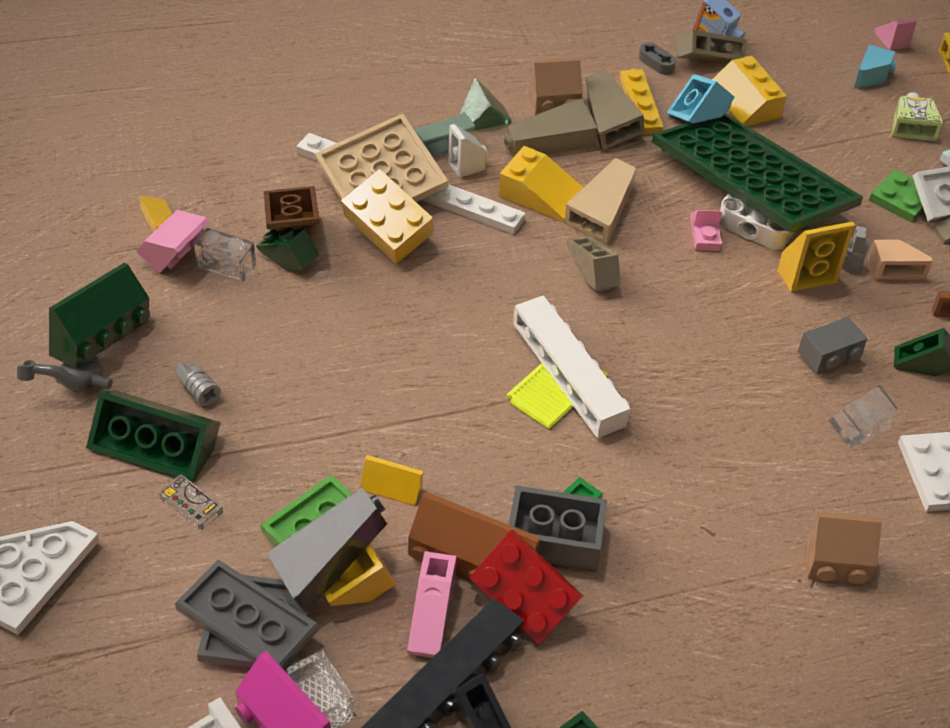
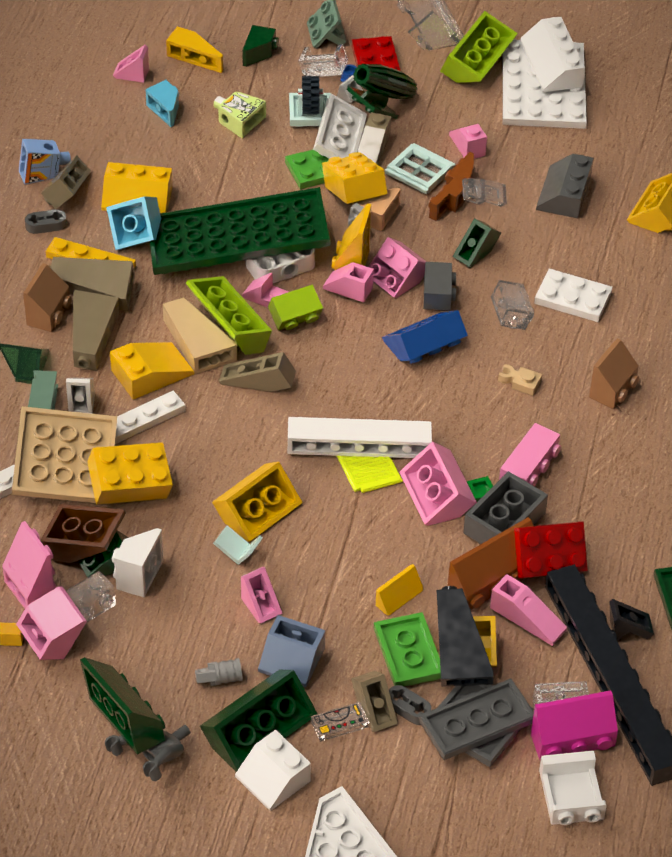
camera: 60 degrees left, 0 degrees up
(96, 473) = (274, 770): none -> white slope
(227, 198) = (28, 566): none -> bright pink slope
(228, 516) = (375, 699): none -> dark tan slope
(250, 423) = (292, 647): none -> sand blue slope
(250, 553) = (410, 703): none -> dark grey beam
(288, 266) = (138, 562): none -> white slope
(309, 371) = (259, 595): none -> bright pink slope
(363, 328) = (234, 545): none -> light aqua bracket
(429, 324) = (258, 501): none -> yellow slope
(560, 455) = (437, 485): none -> bright pink slope
(639, 203) = (231, 313): none -> lime slope
(658, 522) = (533, 454): none -> bright pink brick
(700, 250) = (295, 308): none -> lime brick
(755, 366) = (426, 336): none -> blue slope
(774, 280) = (351, 281): none -> bright pink slope
(774, 476) = (522, 380): none -> tan plate
(829, 301) = (397, 268): none -> bright pink slope
(906, 219) = (354, 178): none -> yellow brick

